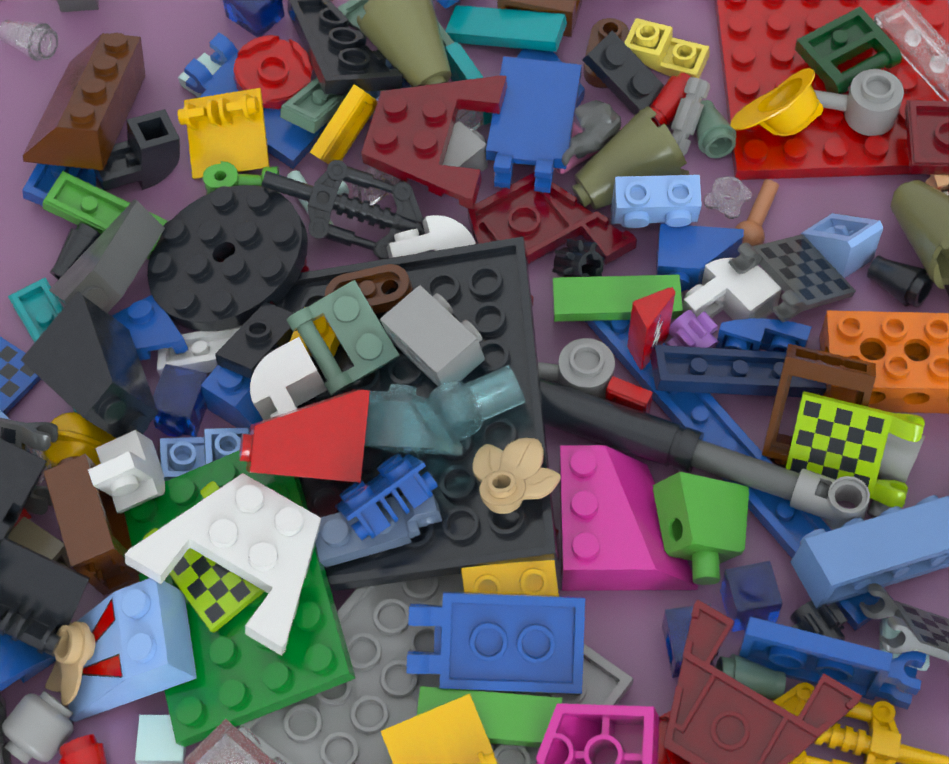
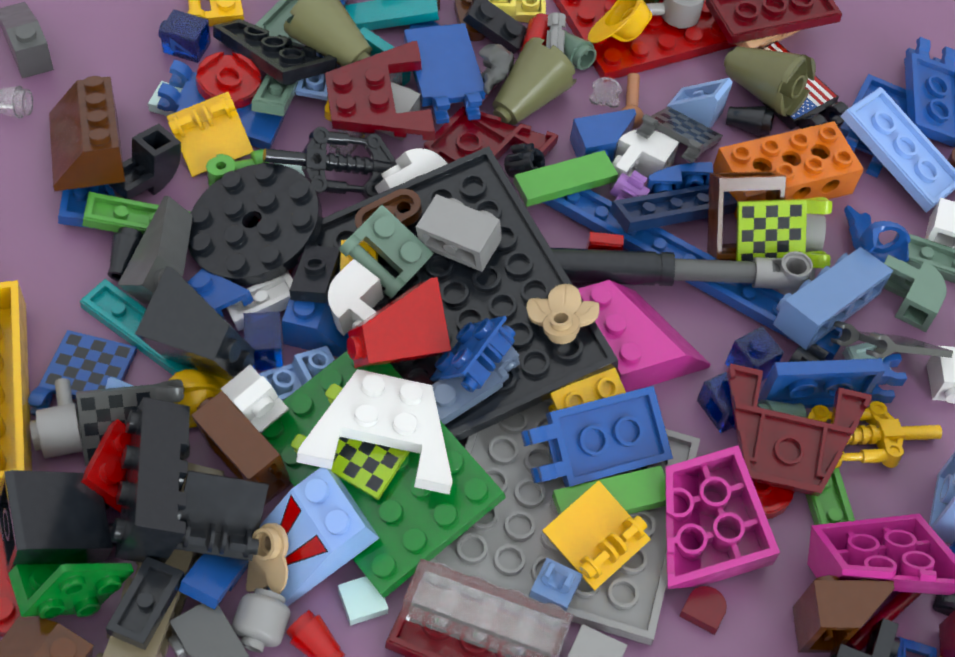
camera: 30 degrees left, 5 degrees down
(344, 125) = (305, 106): yellow tile -> none
(408, 424) = (472, 297): clear light blue slope -> none
(474, 402) = (505, 275): clear light blue piece -> none
(582, 366) = (566, 230): light grey piece -> none
(649, 324) = (603, 187): red slope -> none
(656, 199) = (565, 102): light blue plate -> none
(702, 521) = (699, 315): bright green torso -> none

